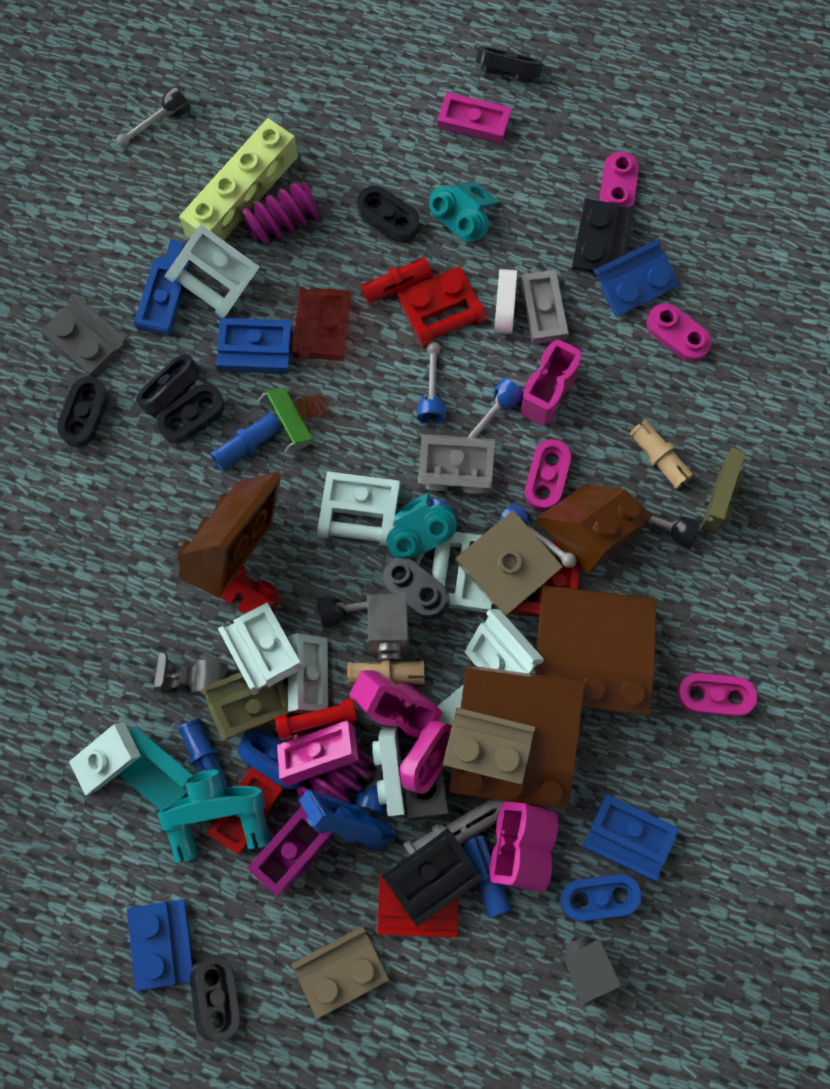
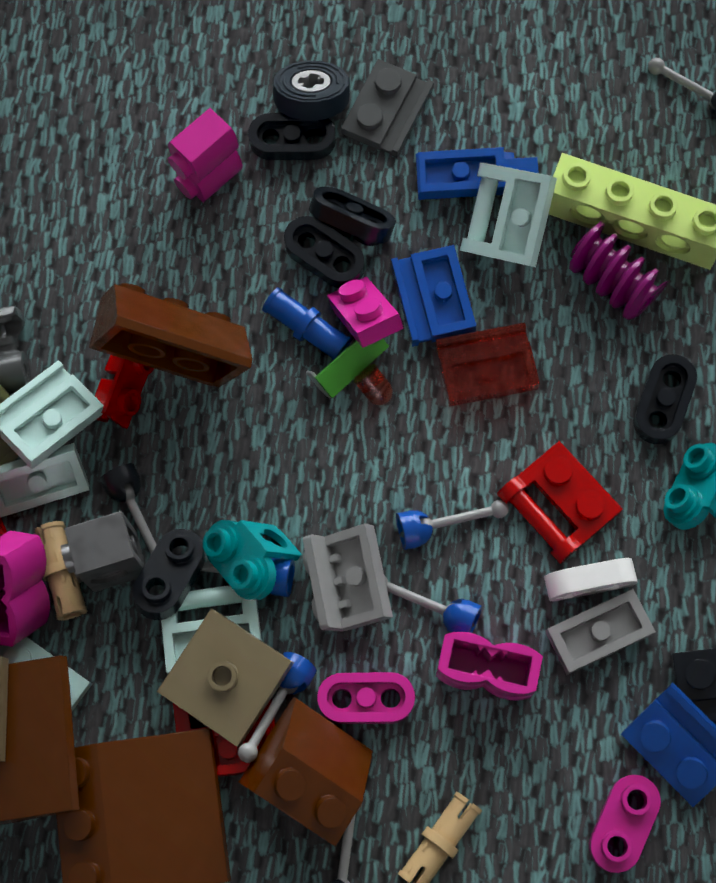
camera: 75 degrees right, 0 degrees up
(50, 384) = (311, 90): none -> black bush
(82, 474) = (204, 156): none -> dark pink brick
(254, 393) = (365, 311): none -> dark pink plate
(358, 497) = (273, 476): light aqua plate -> none
(396, 280) = (575, 436): red pin -> none
(501, 646) = (110, 699): light aqua plate -> none

